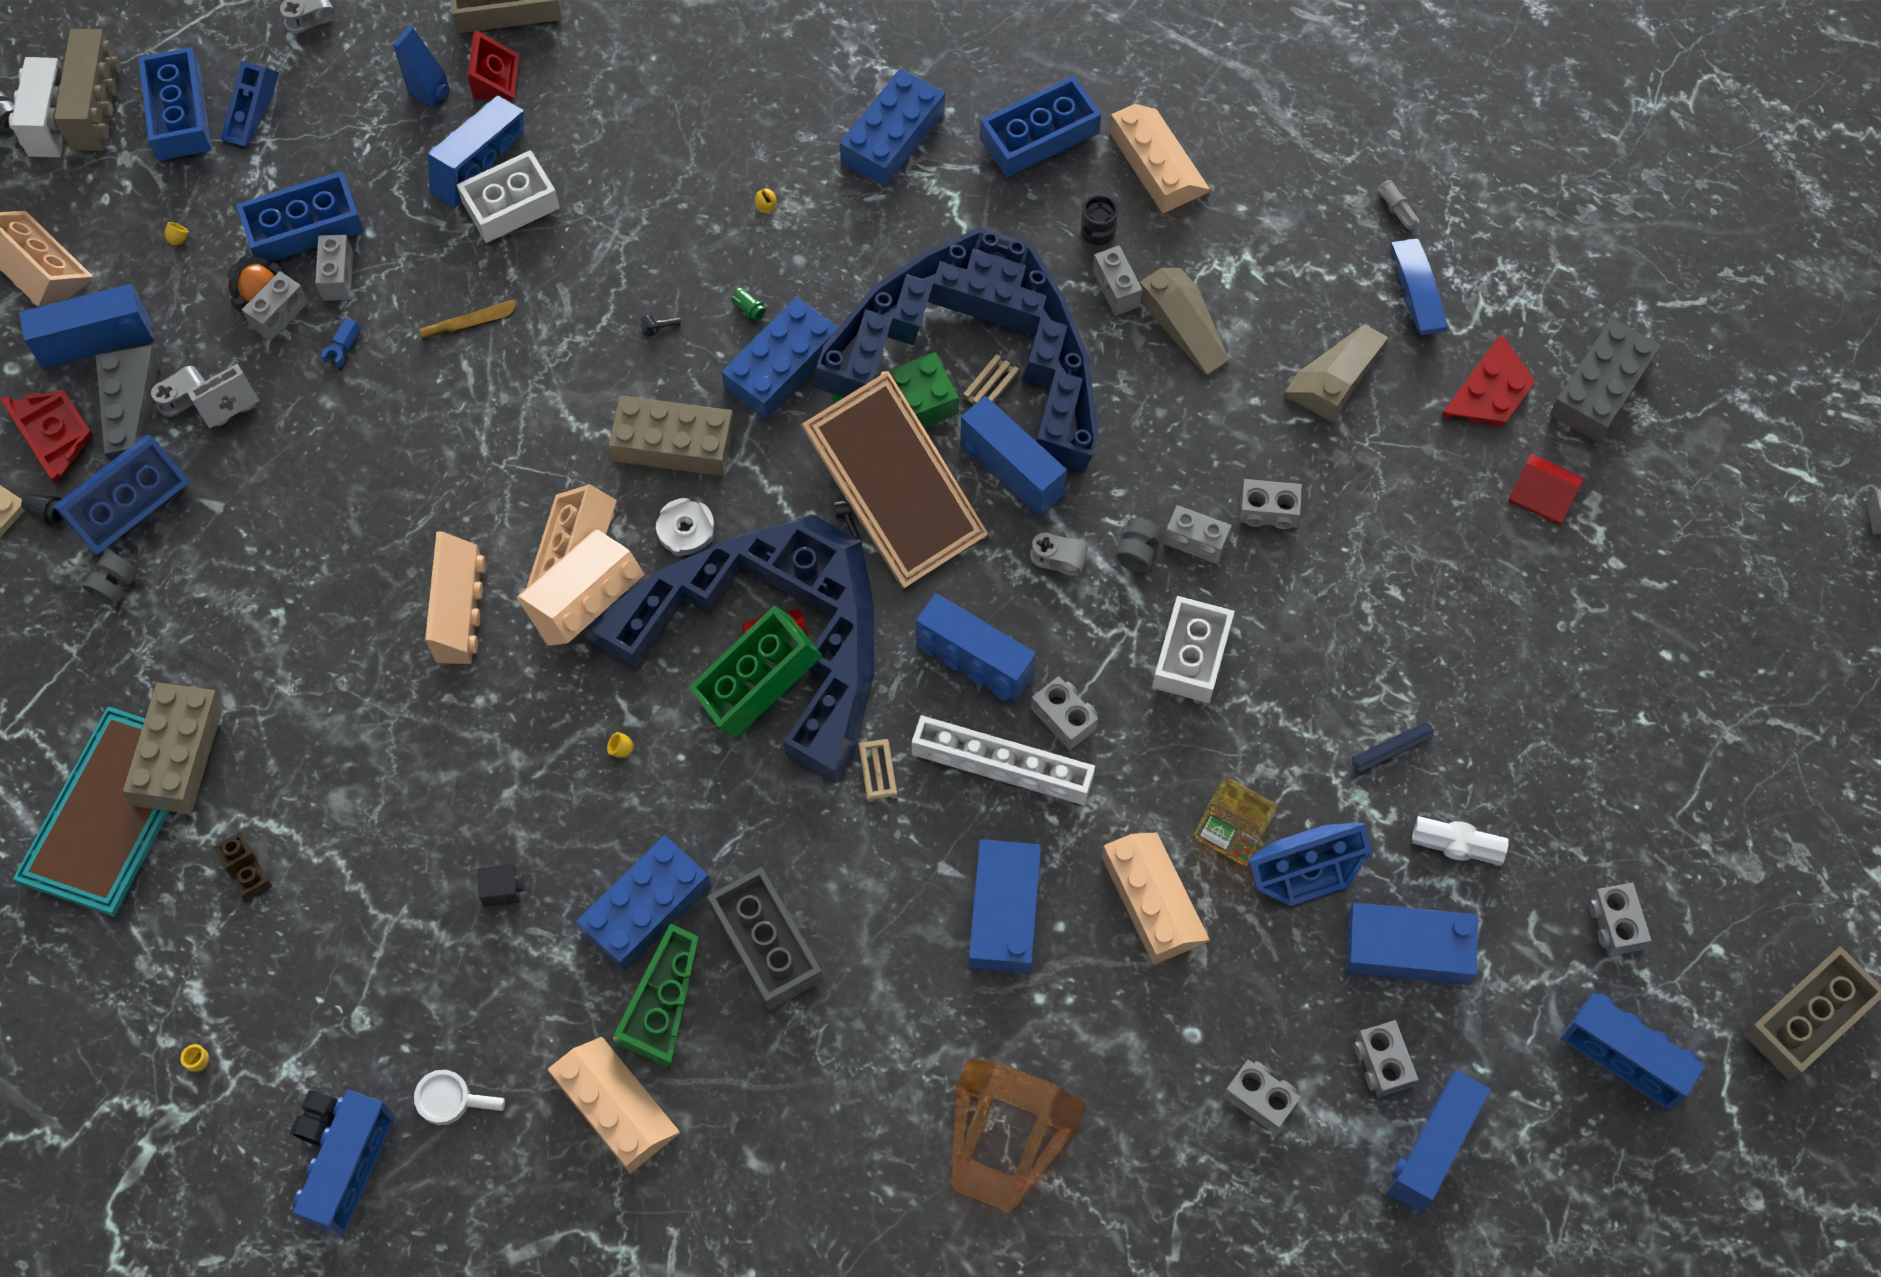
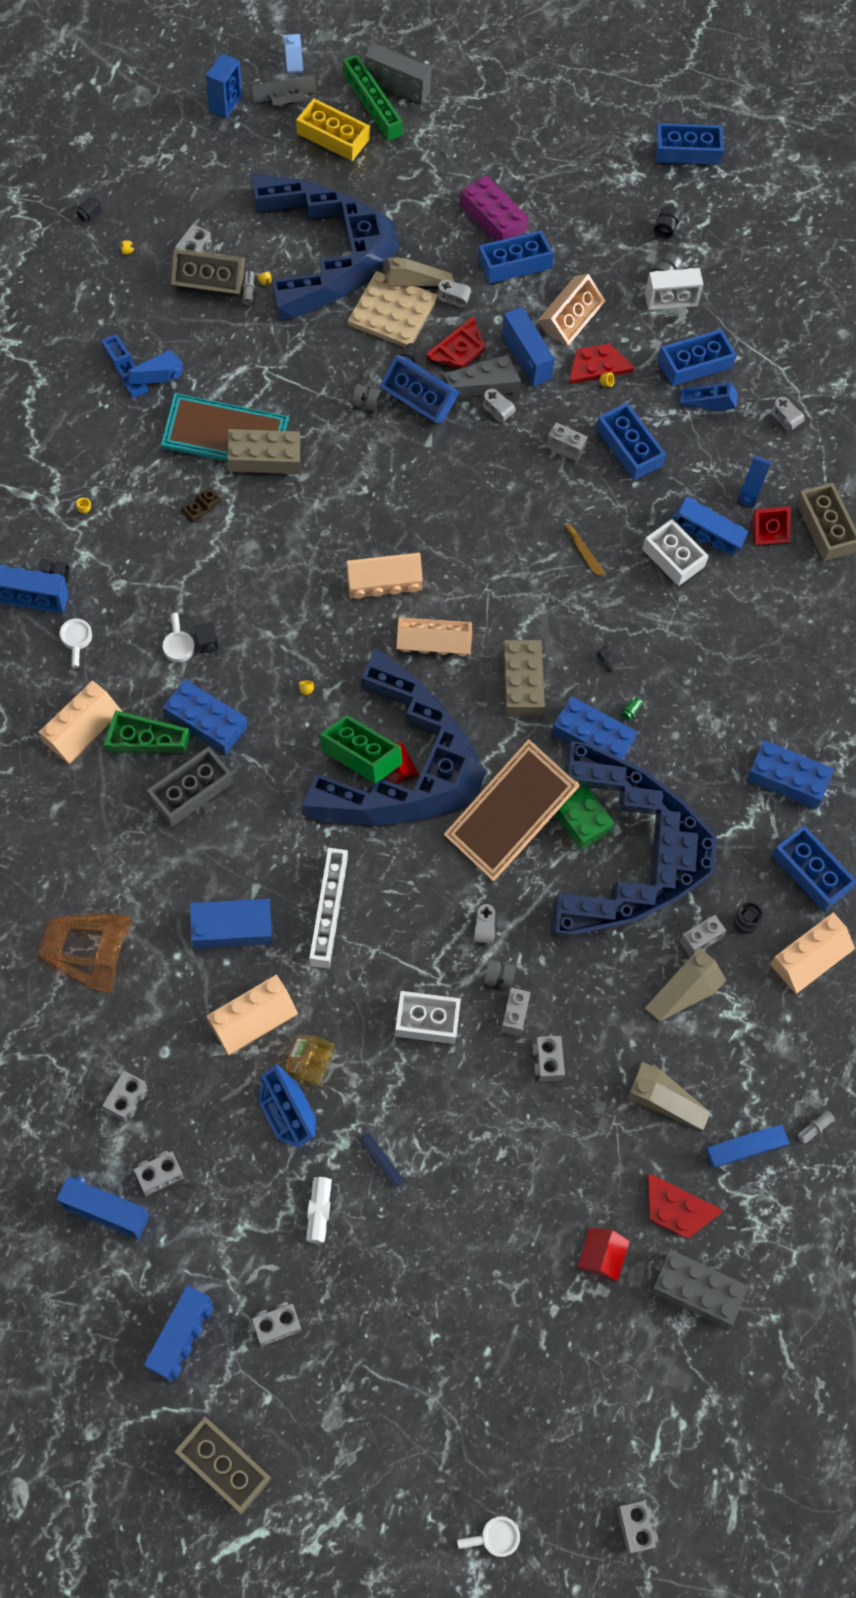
camera: 75 degrees right, 0 degrees up
(87, 90) = (692, 308): dark tan brick -> none
(139, 241) = (597, 360): none -> red wing
(227, 383) = (497, 427): light grey brick -> none
(249, 278) = (583, 423): cap -> none
(334, 267) = (601, 467): light grey brick -> none
(341, 341) = (551, 483): blue bar -> none
(499, 933) = (178, 645): none -> white piece
(579, 587) = (400, 639): light nougat slope -> none
(681, 542) = (466, 707): white plate -> none
(760, 202) = (717, 709): yellow hinge -> none
(881, 794) = (317, 844): tan tile -> none
(975, 648) = (402, 878): blue brick -> none
(1004, 366) = (608, 860): tan tile -> none
(1012, 456) = (547, 883): blue brick -> none
(1058, 716) = (366, 940): light grey brick -> none
(1411, 943) = (239, 1182): blue brick -> none

